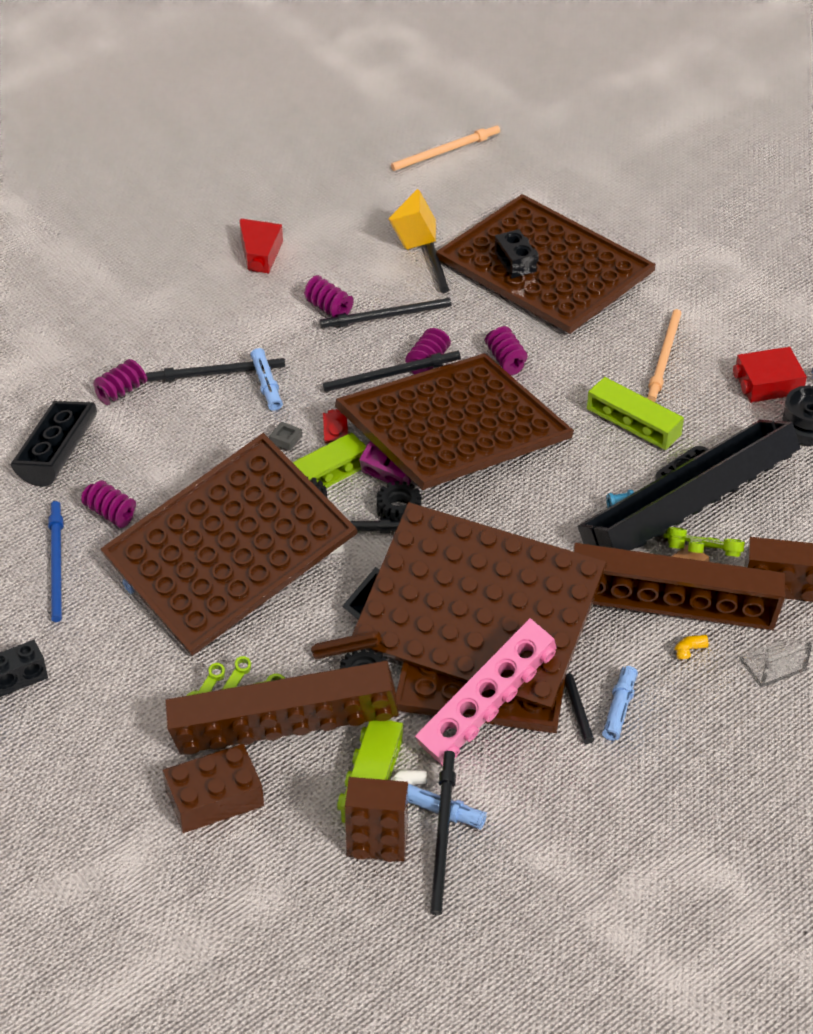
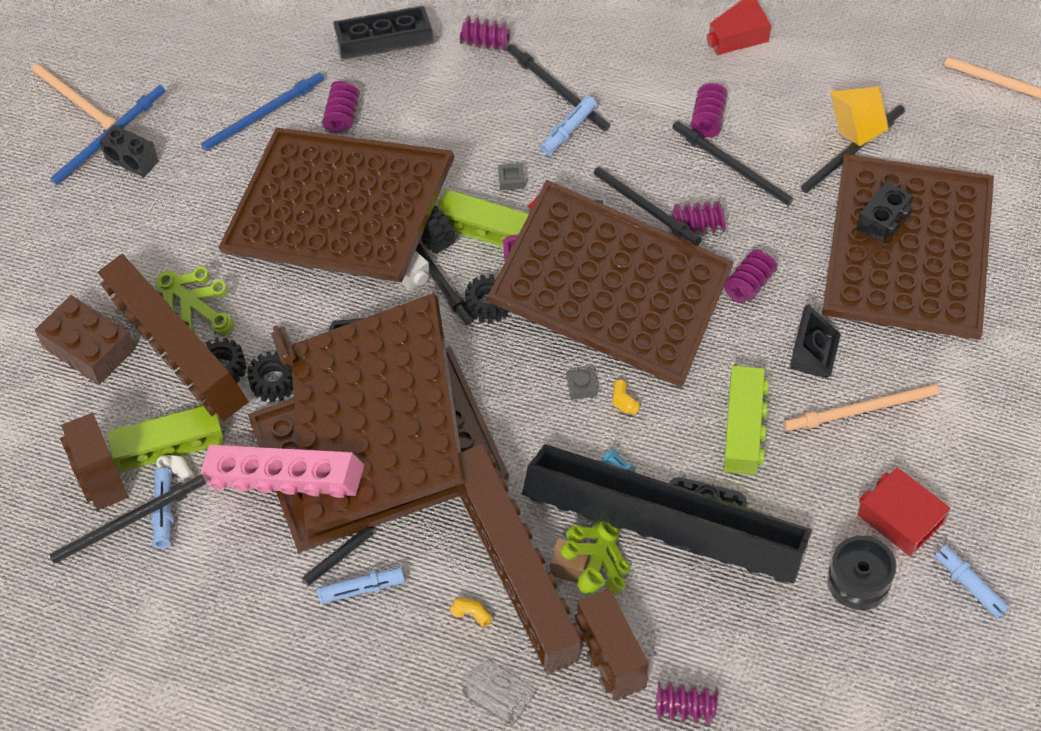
camera: 60 degrees right, 10 degrees up
(524, 489) = (581, 384): none -> dark grey plate
(559, 473) = (622, 400): none -> yellow arm
(591, 351) = (815, 345): none -> black slope

